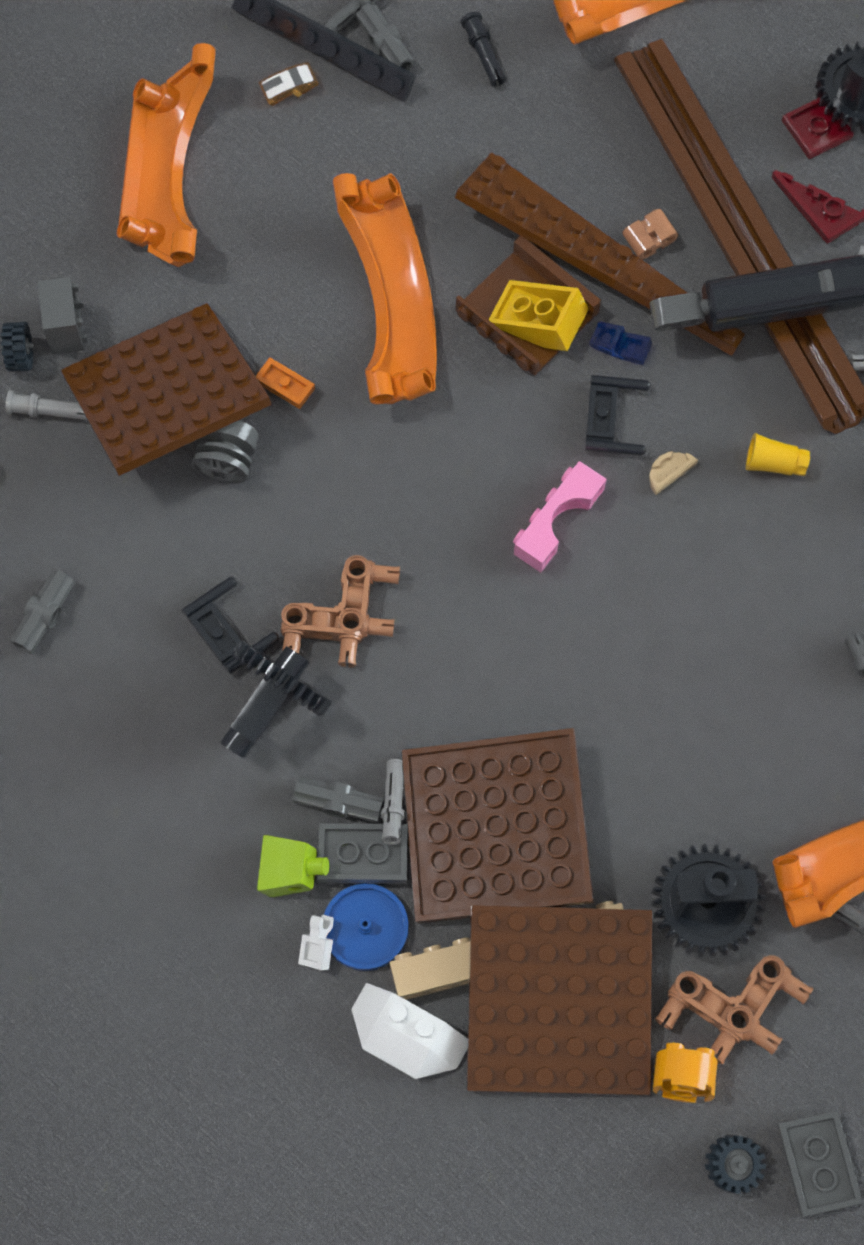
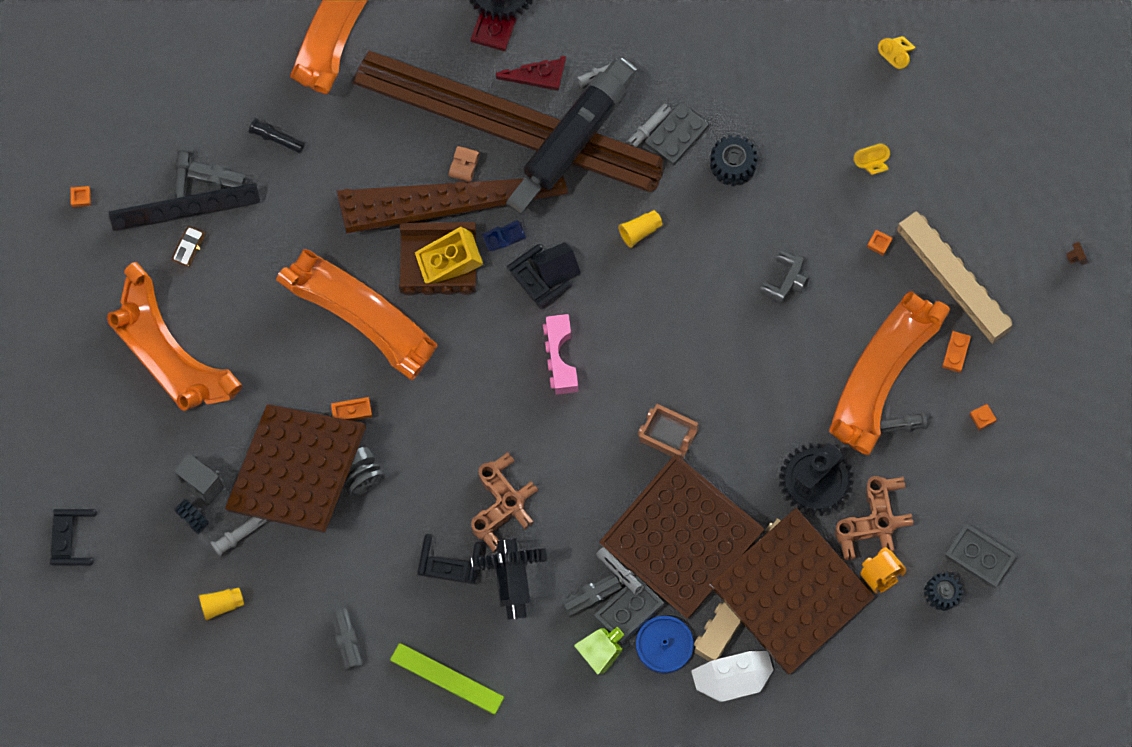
camera: 40 degrees left, 0 degrees up
(103, 749) = (447, 679): none -> lime tile
(315, 947) = (651, 675): white plate -> none
(594, 700) = (668, 431): none -> window
(646, 420) = (556, 265): none -> black slope
(669, 468) = (591, 280): tan tile -> none

